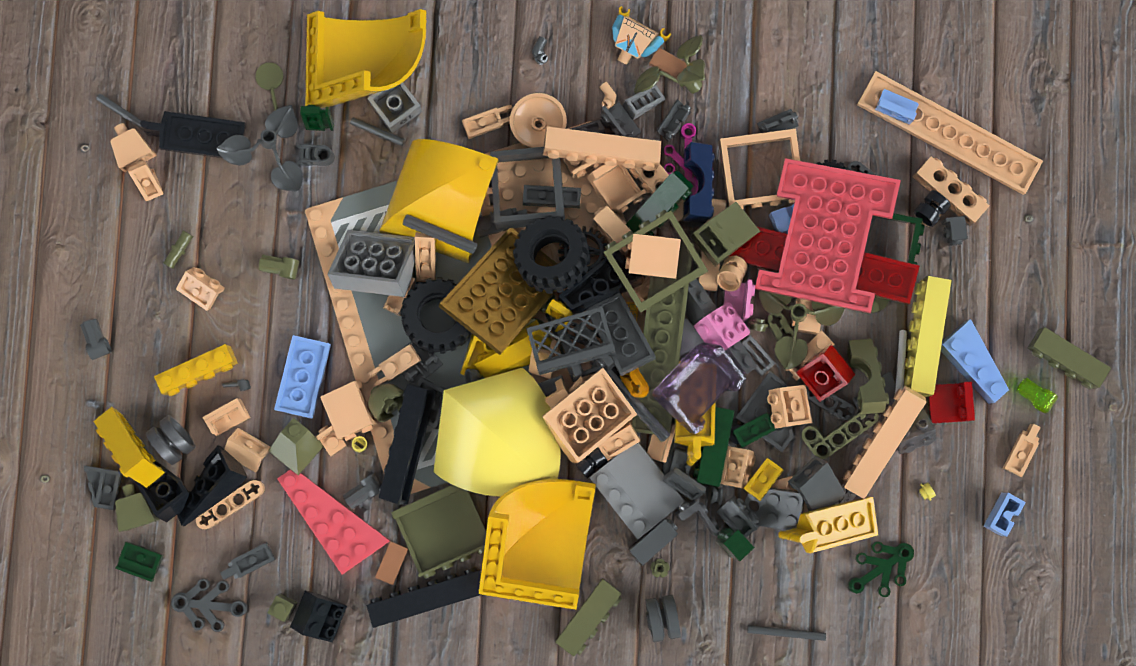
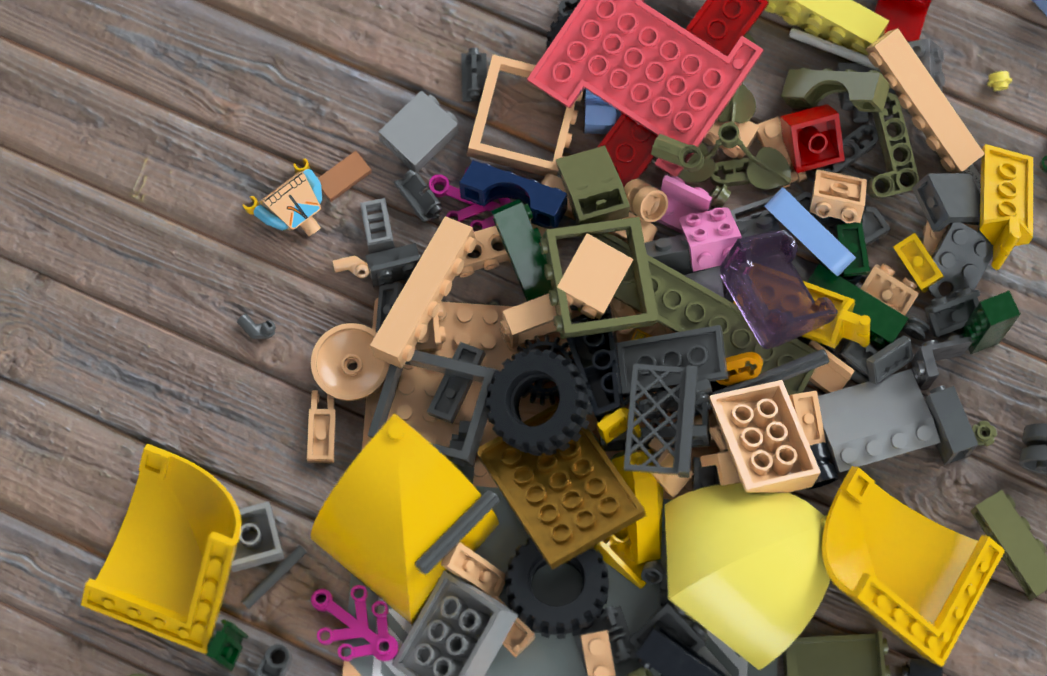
camera: 70 degrees left, 10 degrees down
(363, 198) = (357, 627): none -> dark pink plant
(616, 187) = (477, 300): light nougat panel -> none
(689, 77) = (377, 153): olive plant -> none
(722, 102) = (419, 131): none -> light grey brick
(752, 394) = (810, 231): none -> light blue beam
(770, 280) = (676, 152): none -> olive piece

